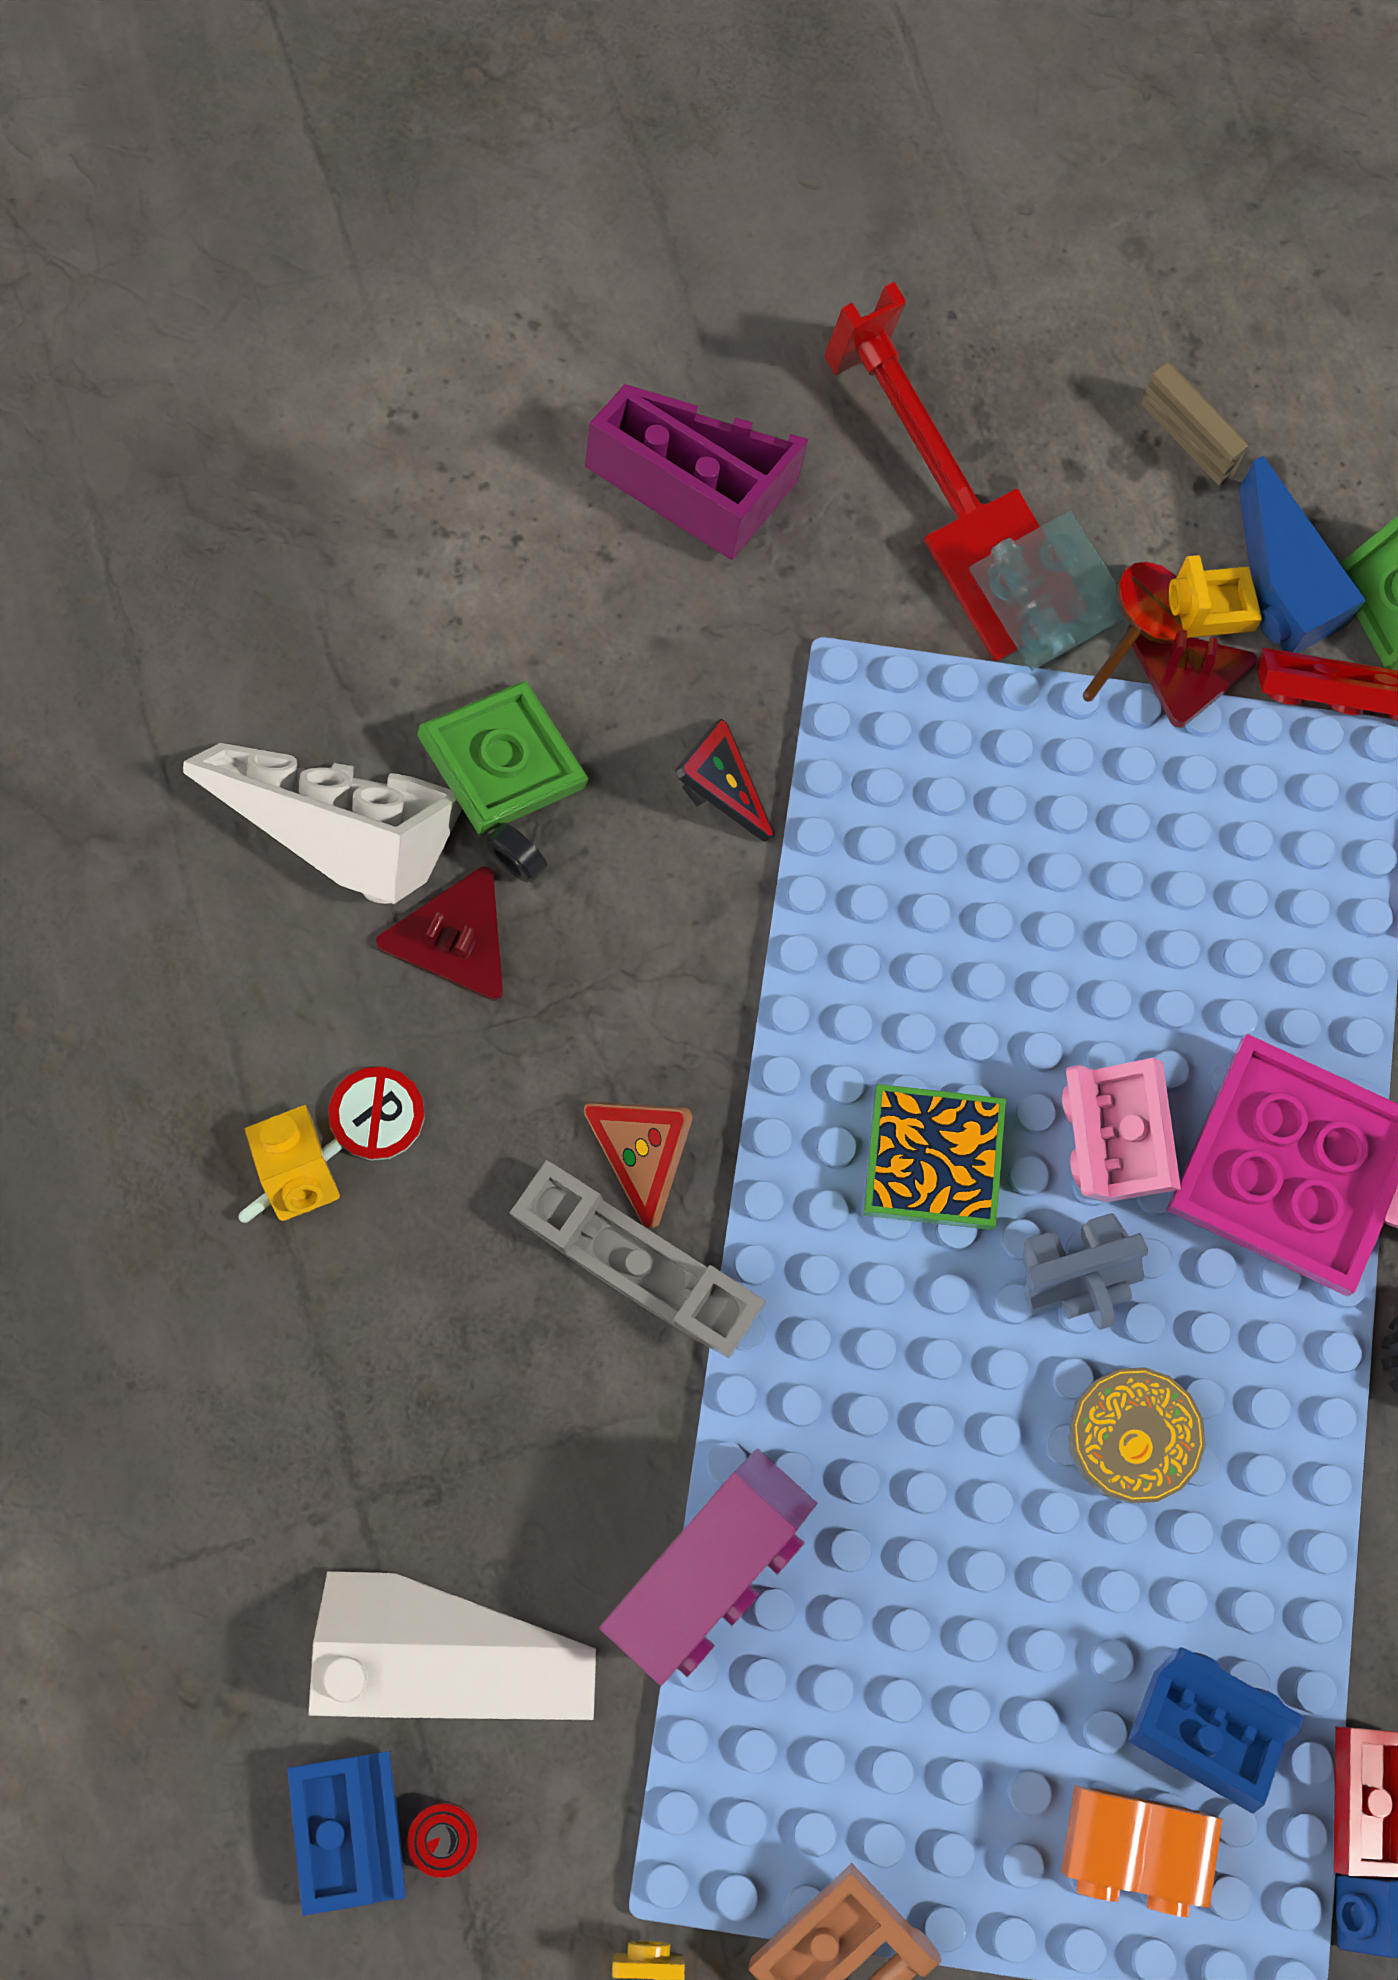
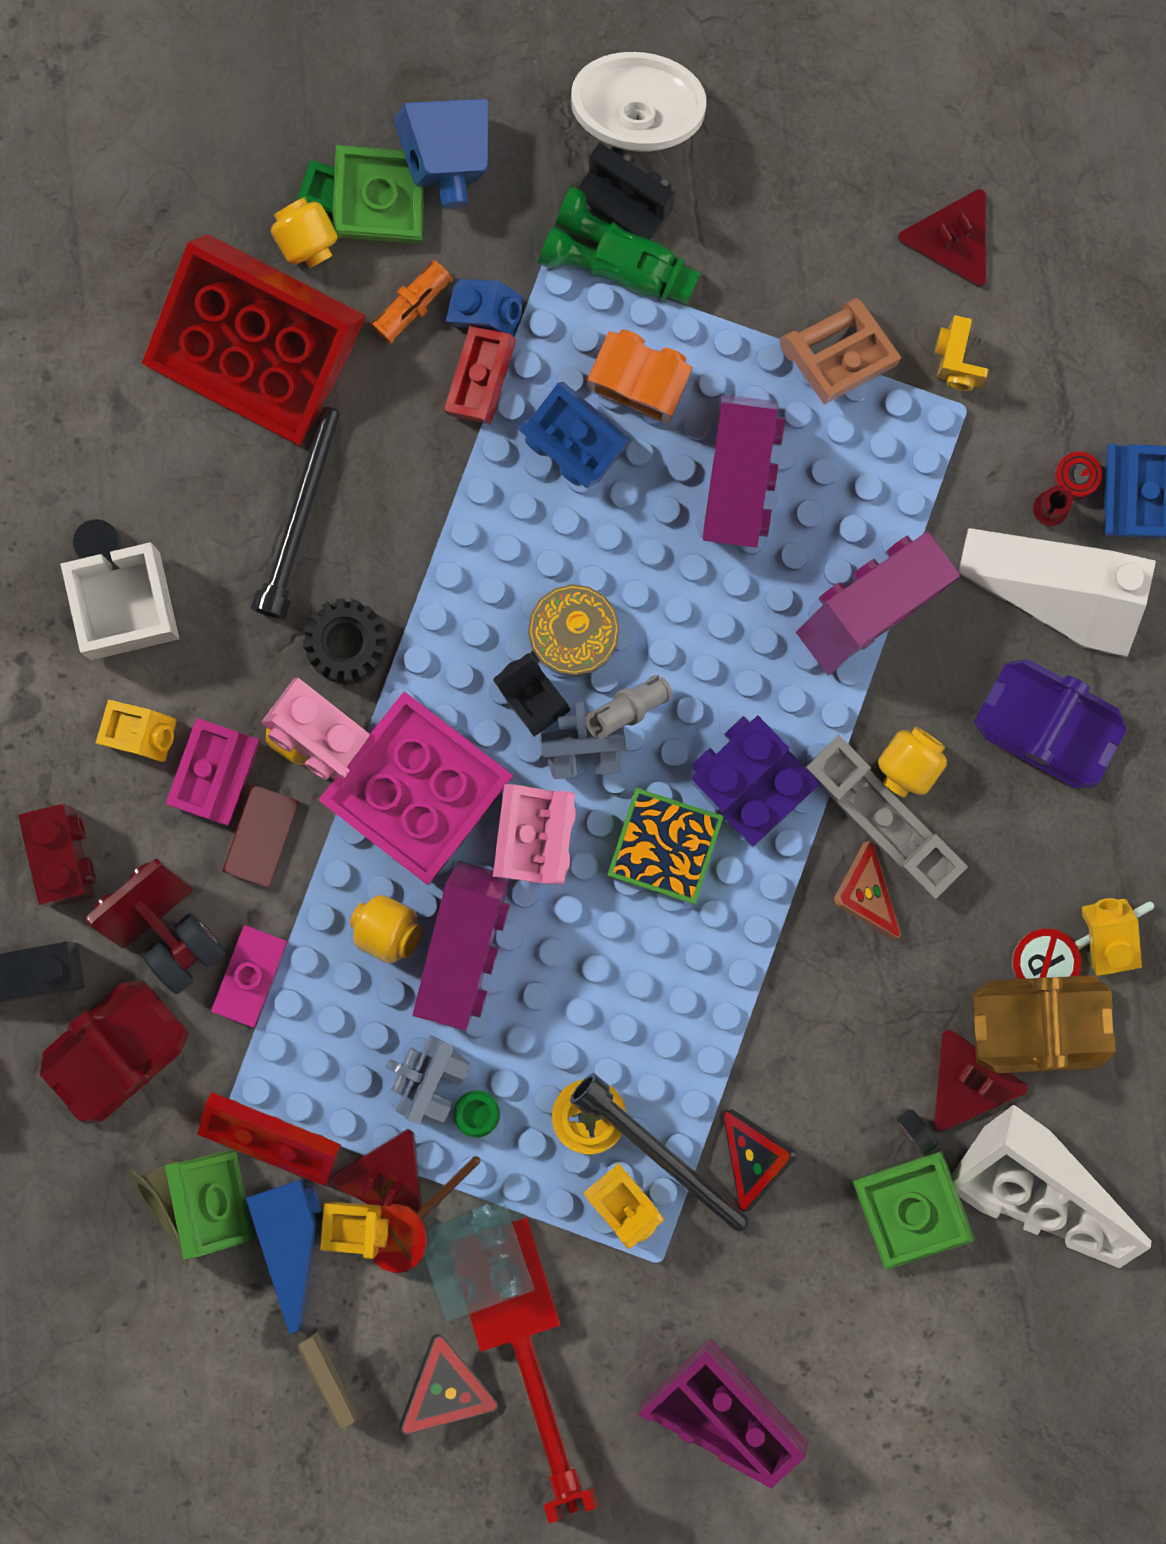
camera: 160 degrees left, 10 degrees up
(367, 1022) = (1043, 1024): none -> pearl gold shield
(424, 1445) = (1051, 723): none -> dark purple shield
(489, 1766) = (1042, 505): none -> dark red pin
(613, 1346) = (912, 762): none -> yellow head
(836, 1271) = (752, 779): none -> dark purple plate
(881, 682) = (624, 1206): none -> yellow bracket
(956, 798) = (594, 1097): none -> black piece
(958, 1729) = (742, 471): none -> magenta wedge
(963, 762) = (575, 1134): none -> yellow gear
(1037, 1331) = (628, 707): none -> light grey pin
(1048, 436) = (444, 1391): none -> piece
(1097, 764) = (476, 1113): none -> green tile
(1175, 1325) = (531, 694): none -> black bracket
(1176, 760) = (420, 1076): none -> sand blue hips
(1181, 963) = (462, 946): none -> magenta wedge
(1285, 966) = (385, 929): none -> yellow head

